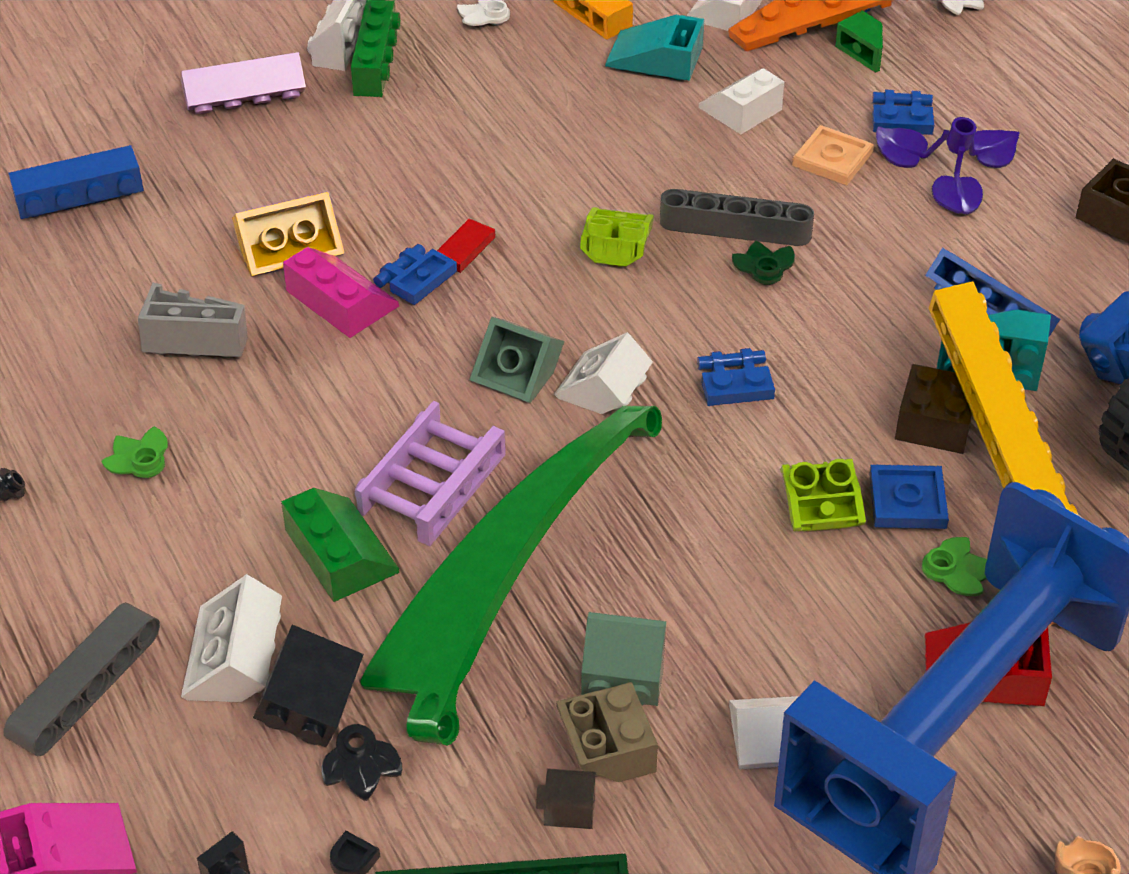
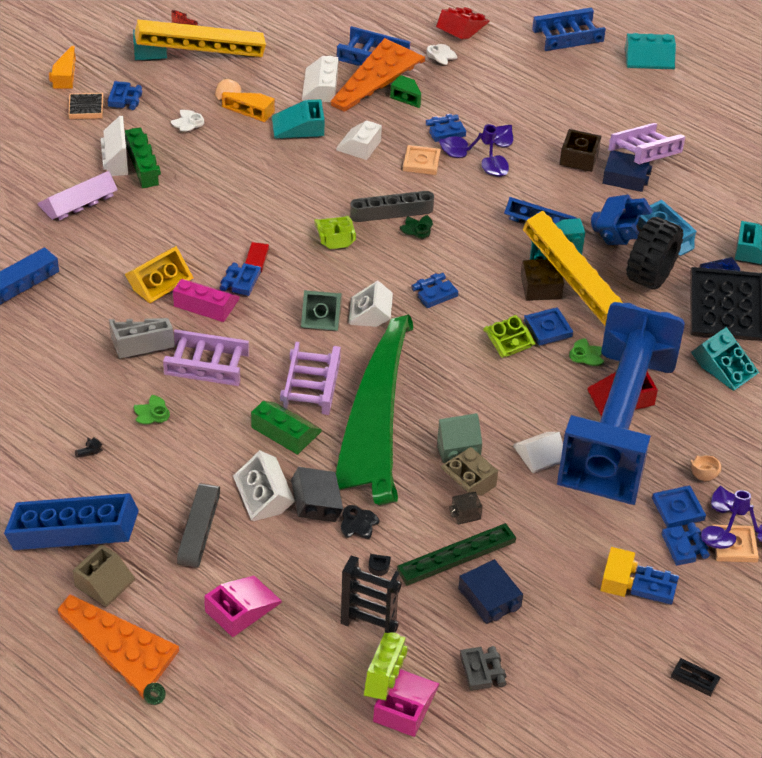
camera: 25 degrees left, 0 degrees up
(275, 414) = (203, 370): none -> lavender fence

